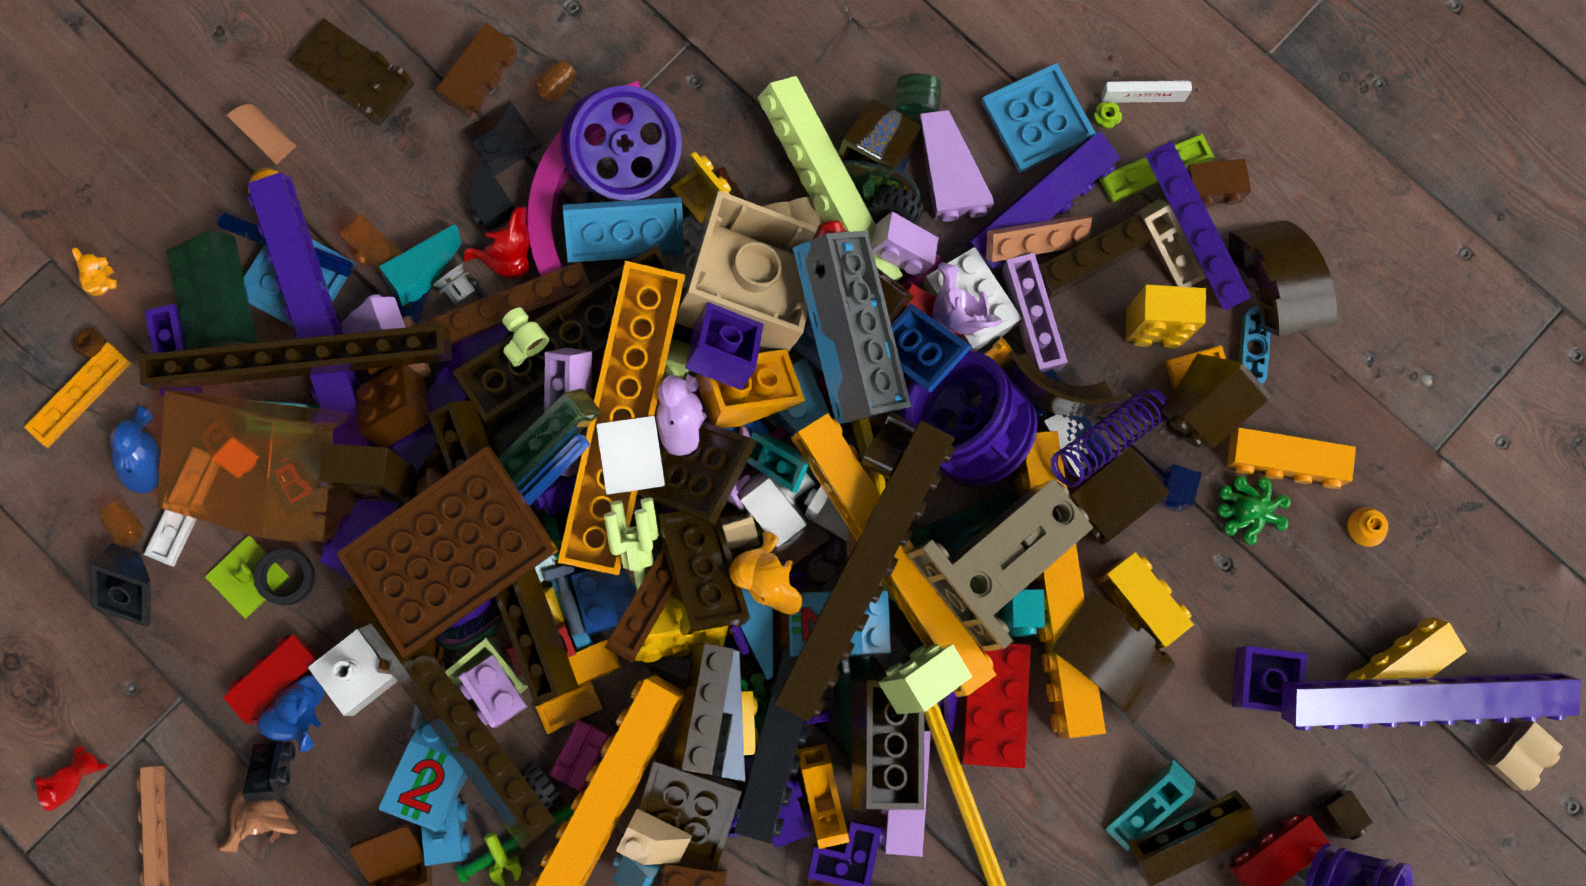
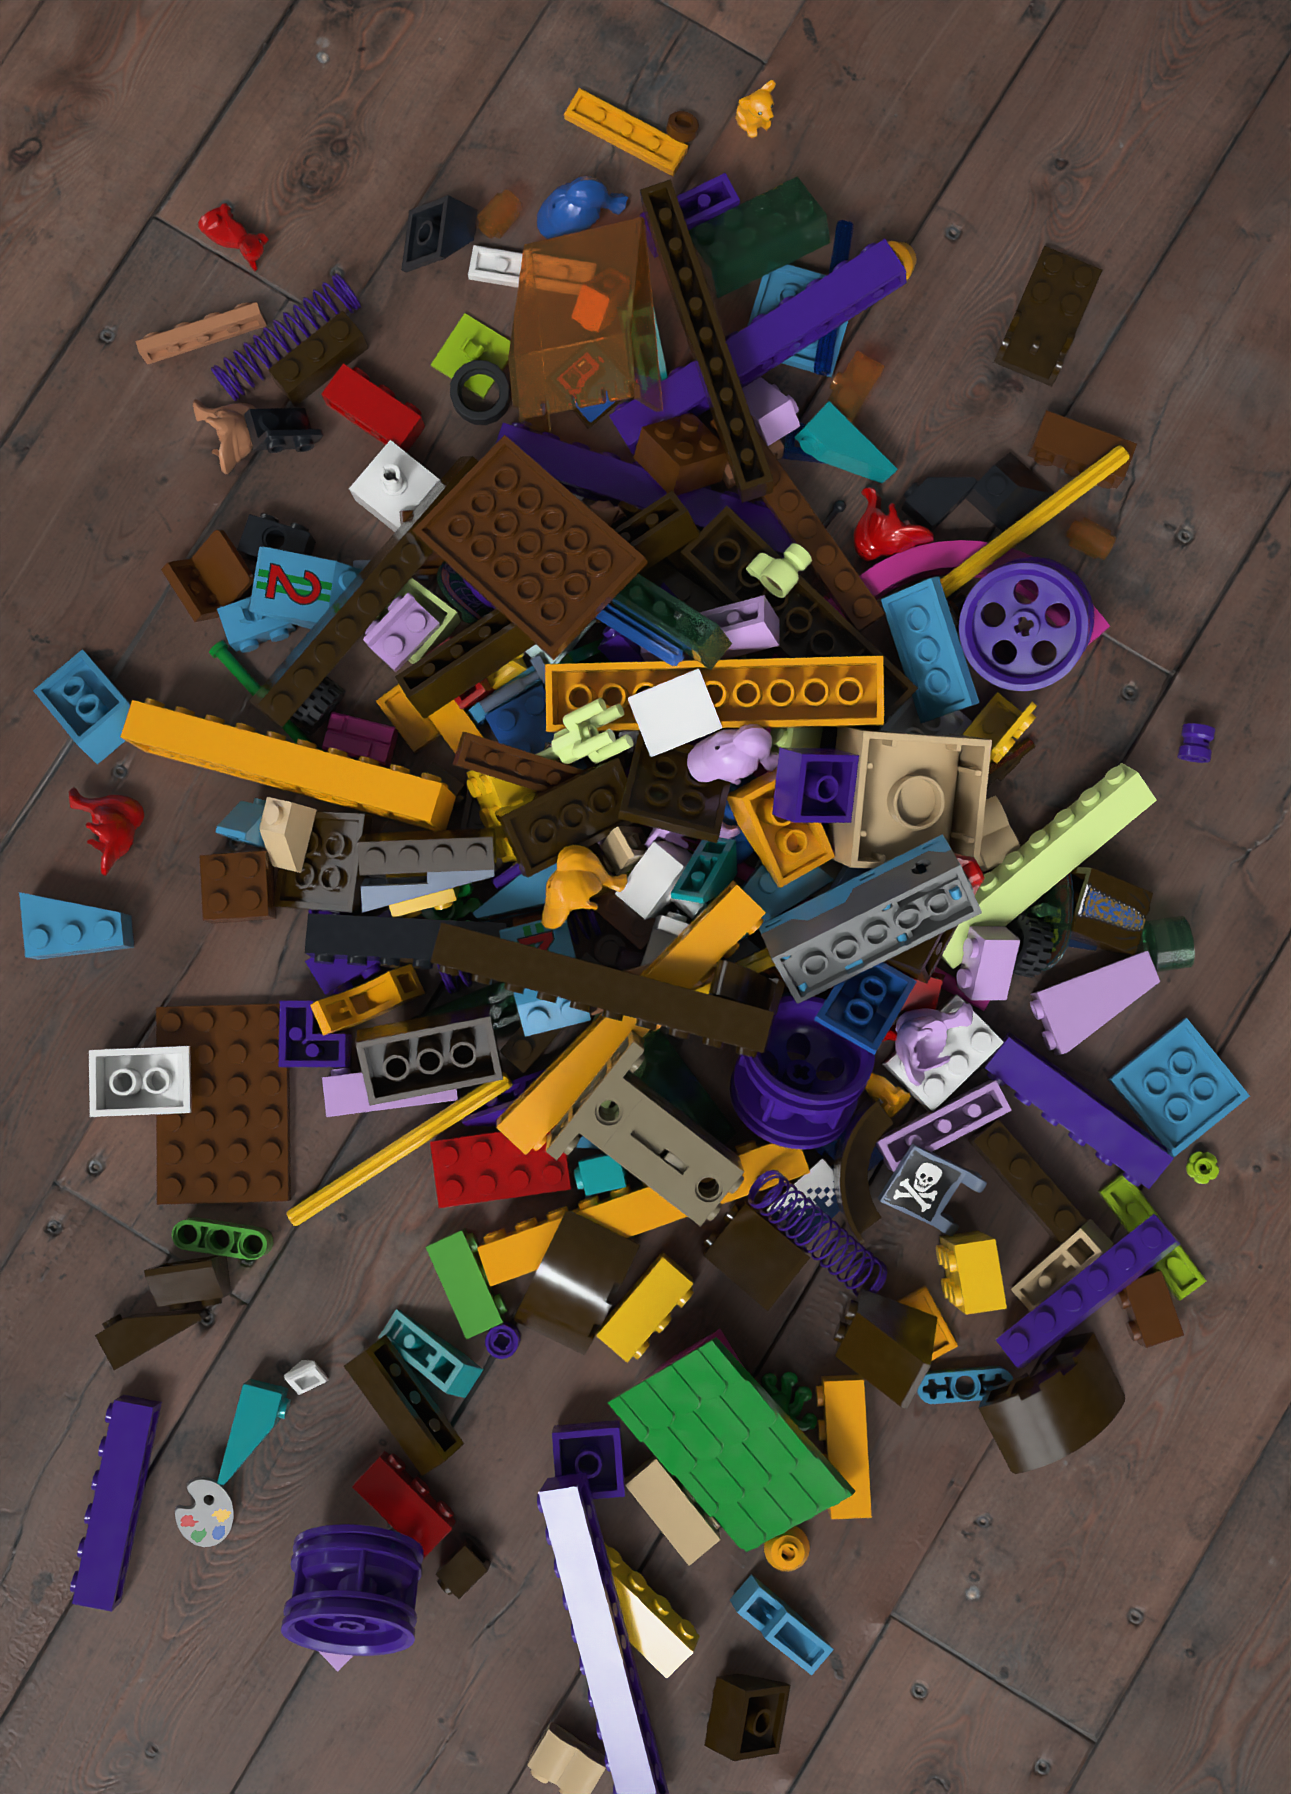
camera: 85 degrees right, 5 degrees up
(165, 679) = (343, 292): none -> dark purple piece
(210, 721) = (318, 358): none -> dark brown brick
(262, 132) = (955, 239): nougat brick -> none
(293, 713) = (340, 438): blue piece -> none
(359, 806) = (264, 529): none -> black brick
(367, 473) = (596, 444): dark brown brick -> none
(455, 284) = (831, 487): light grey piece -> none
(501, 860) = (238, 685): lime bar -> none
(529, 118) = (1034, 520): none -> yellow axle
(752, 37) = (1196, 743): none -> dark purple wheel
(924, 678) = (502, 1076): yellowish green brick -> none
(1037, 237) = (1031, 1112): nougat plate -> none
(1083, 339) = (926, 1184): none -> flag
(1093, 758) = (466, 1283): none -> bright green brick
(1144, 736) = (507, 1336): none -> dark purple wheel
(1146, 91) = (1241, 1206): white tile -> none
(1182, 485) = (782, 1325): clear blue brick -> none
(1274, 551) = (730, 1443): none -> green piece
(1320, 615) = (673, 1510): none -> tan brick
(1432, 545) = (781, 1624): none -> dark azure slope
(1506, 591) = (746, 1716): none -> dark brown slope

